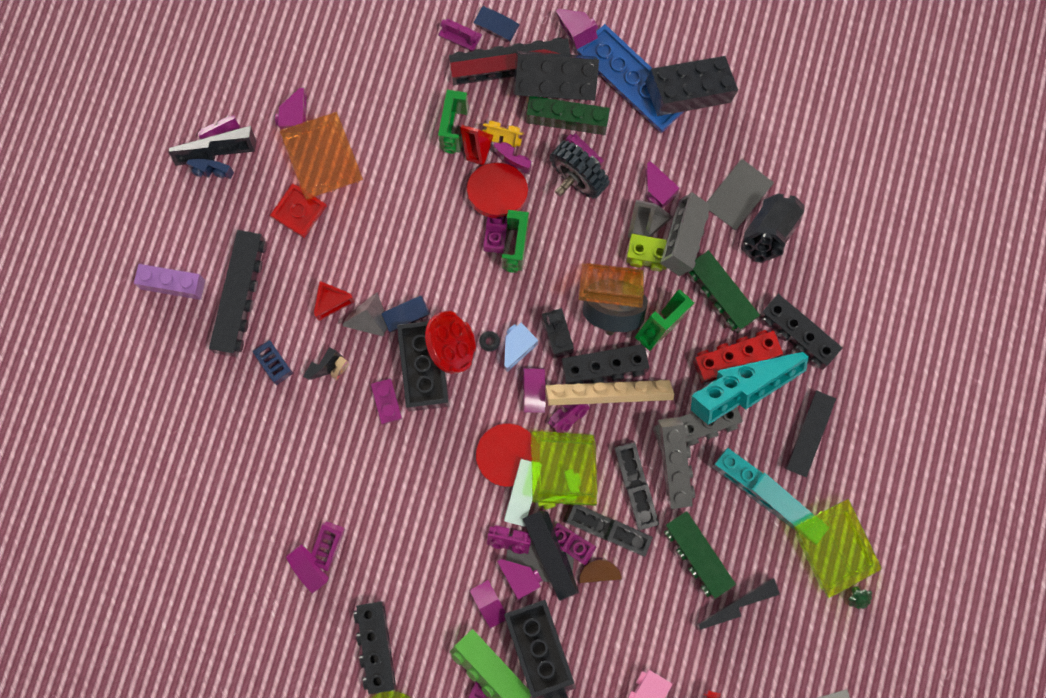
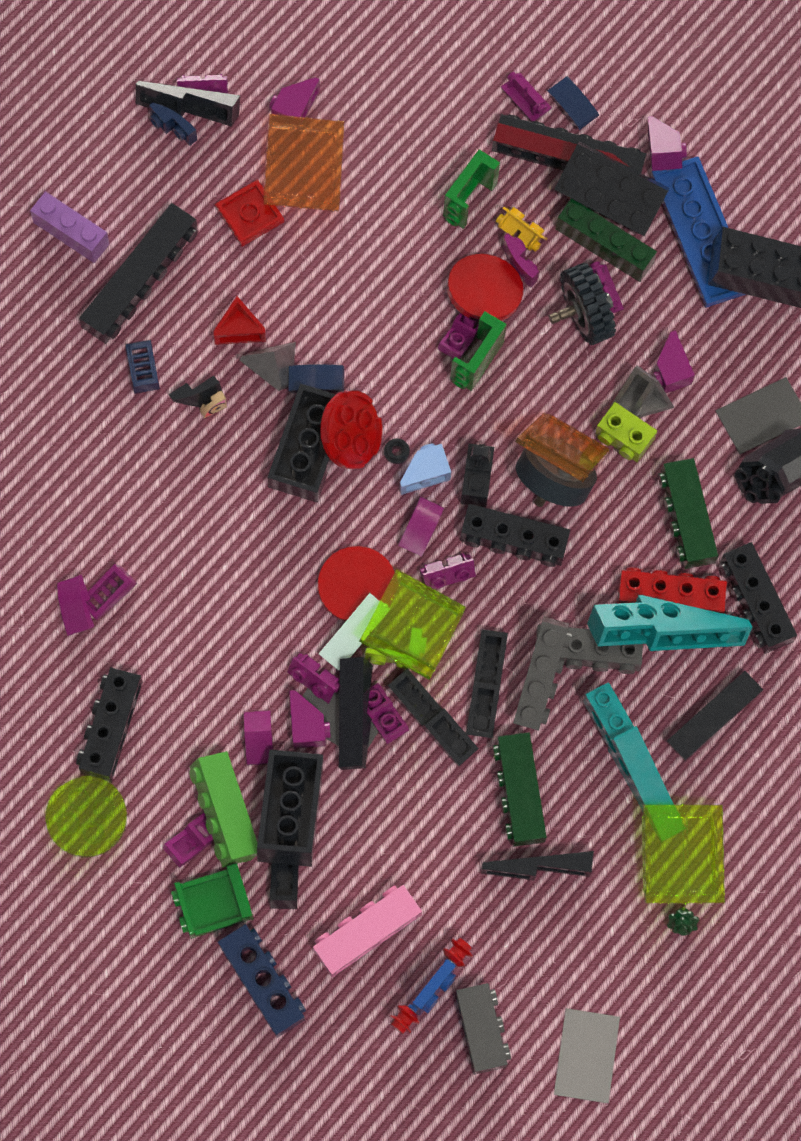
camera: 20 degrees right, 5 degrees down
(386, 401) = (249, 465): magenta plate -> none
(476, 144) = (485, 225): red slope -> none
(600, 571) = (399, 758): reddish brown tile -> none
(609, 392) = (505, 565): tan plate -> none
(657, 327) = (591, 519): green panel -> none
(685, 234) = (675, 429): dark grey brick -> none

